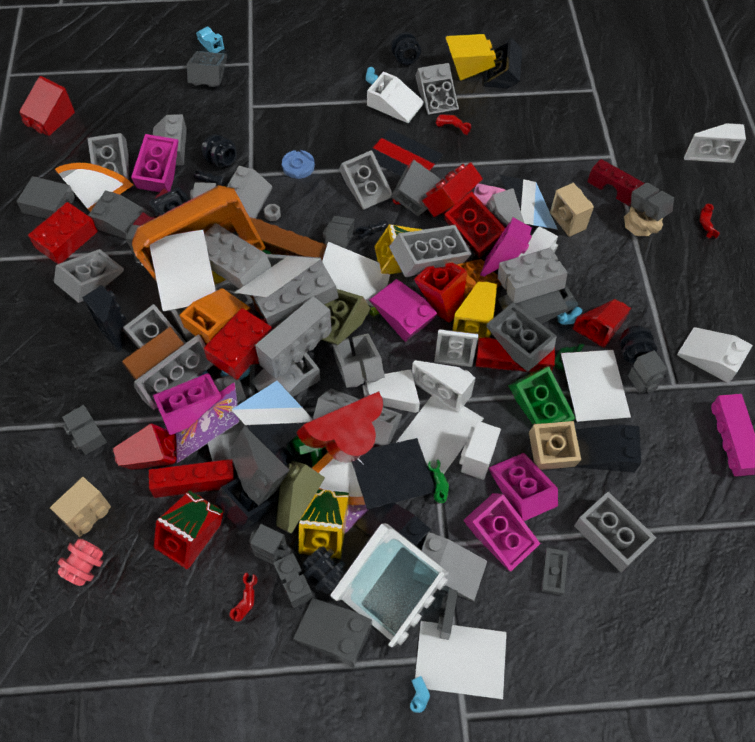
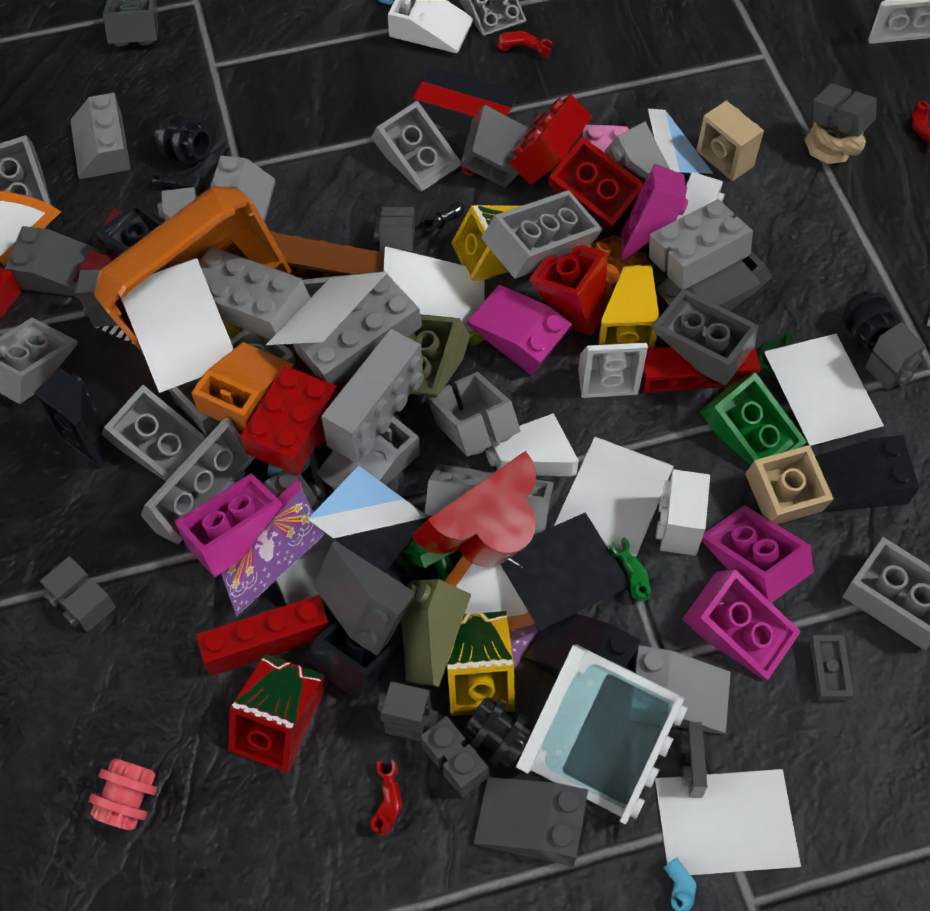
camera: 10 degrees left, 0 degrees up
(81, 507) = (104, 711): tan brick -> none
(147, 449) = (183, 605): slope -> none
(152, 353) = (158, 460): dark orange brick -> none
(155, 163) = (91, 173): dark pink slope -> none
(272, 212) = (286, 218): light grey tile -> none
(298, 164) = (306, 140): medium blue tile -> none
(444, 382) = (607, 424): white slope -> none
(566, 319) = (763, 299): medium azure arm -> none
(602, 322) = (811, 296): red slope -> none
(605, 173) = (796, 91): dark red arch -> none

